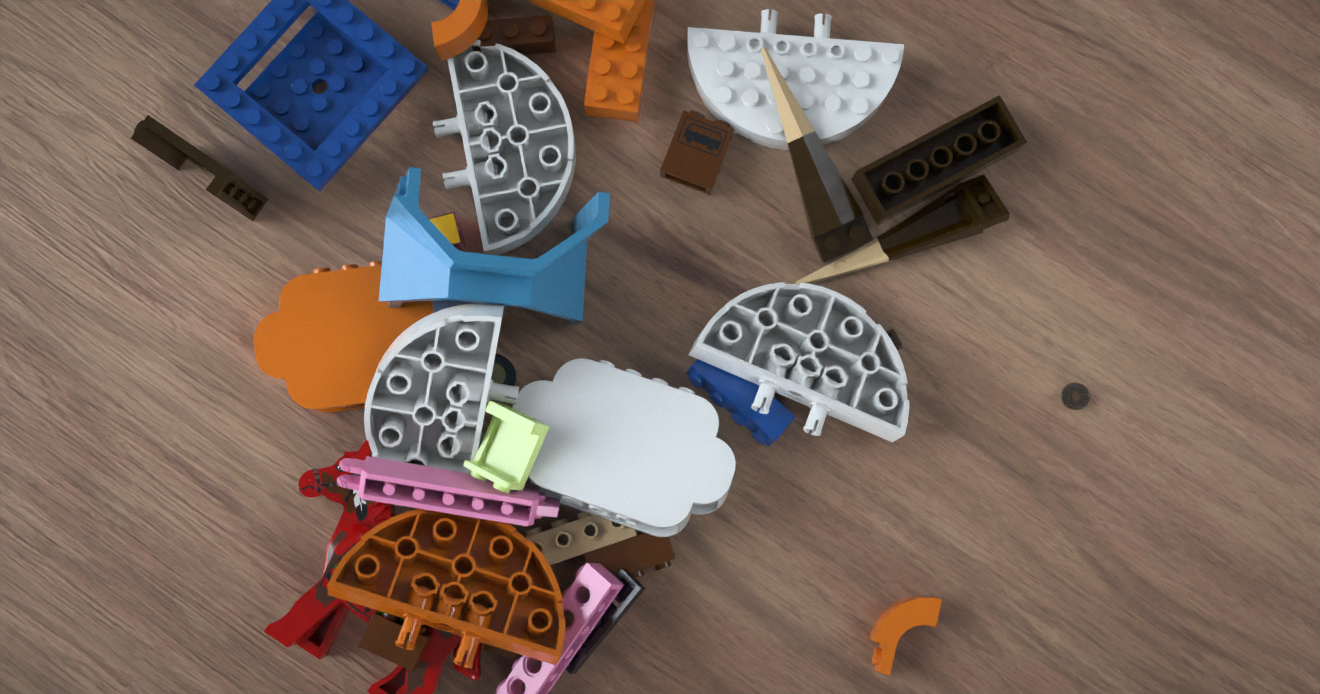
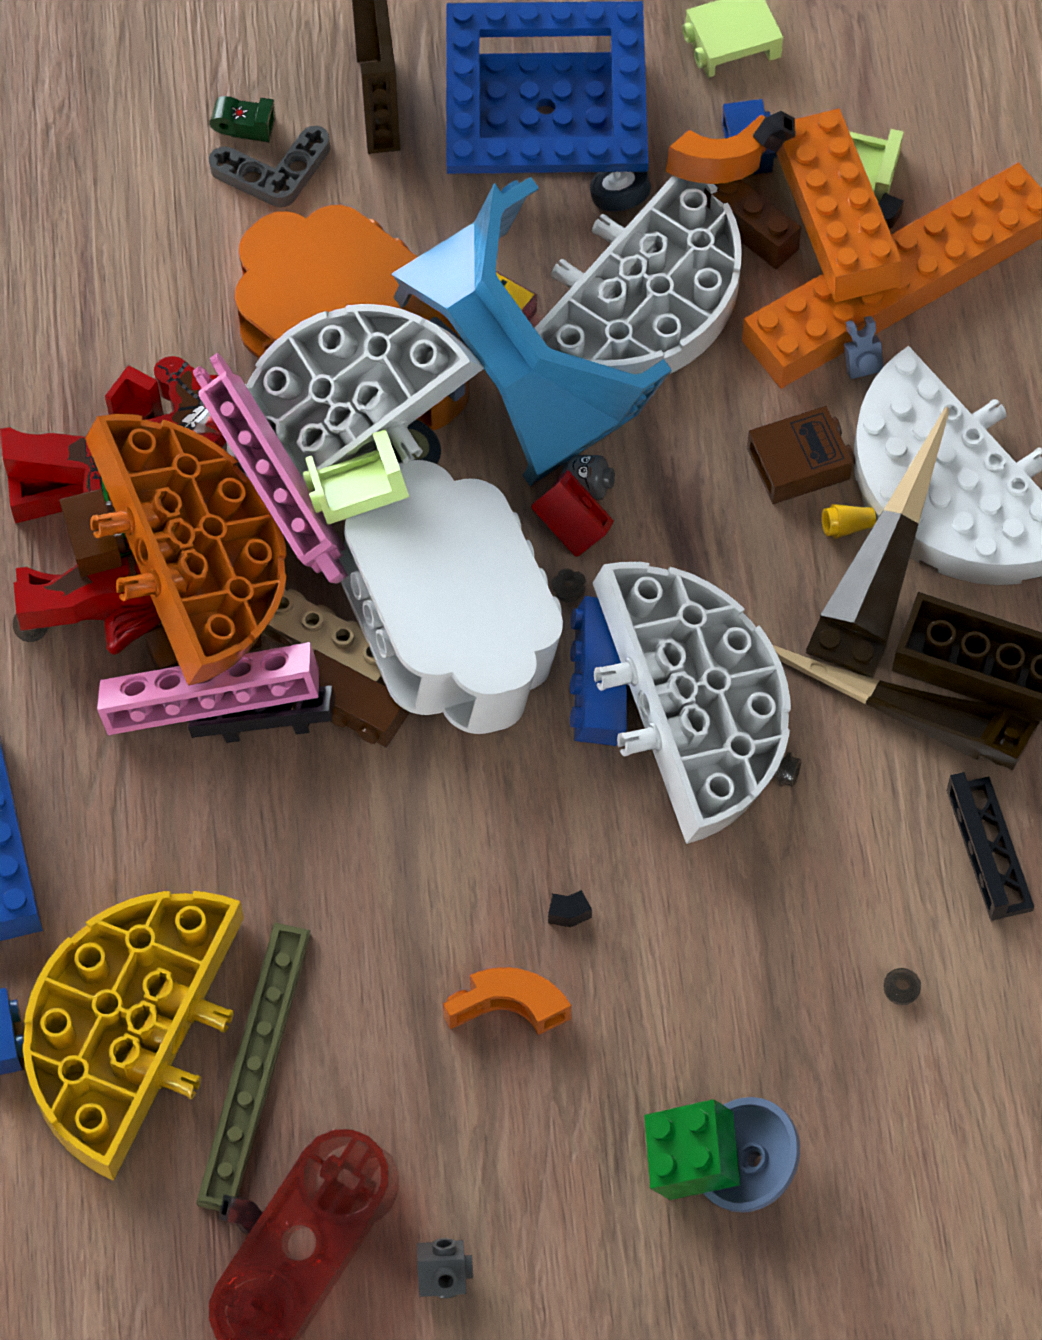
camera: 50 degrees right, 20 degrees down
(158, 277) = (244, 118): none -> dark green leg
(219, 295) = (272, 177): none -> dark grey beam
(312, 523) = (135, 395): none -> red panel
(424, 97) = (619, 190): none -> black wheel
(603, 289) = (592, 473): none -> dark grey head
(623, 319) = (572, 514): none -> red panel
(663, 353) = (572, 592): none -> clear smoke plate
(664, 54) = (865, 352): none -> sand blue plate
(761, 165) = (845, 520): none -> yellow cone
(872, 542) = (569, 909): none -> black piece
(1028, 276) = (981, 850): none -> black fence
(1085, 607) = (691, 1149): none -> green brick
(1116, 592) = (765, 1132): none -> sand blue dish

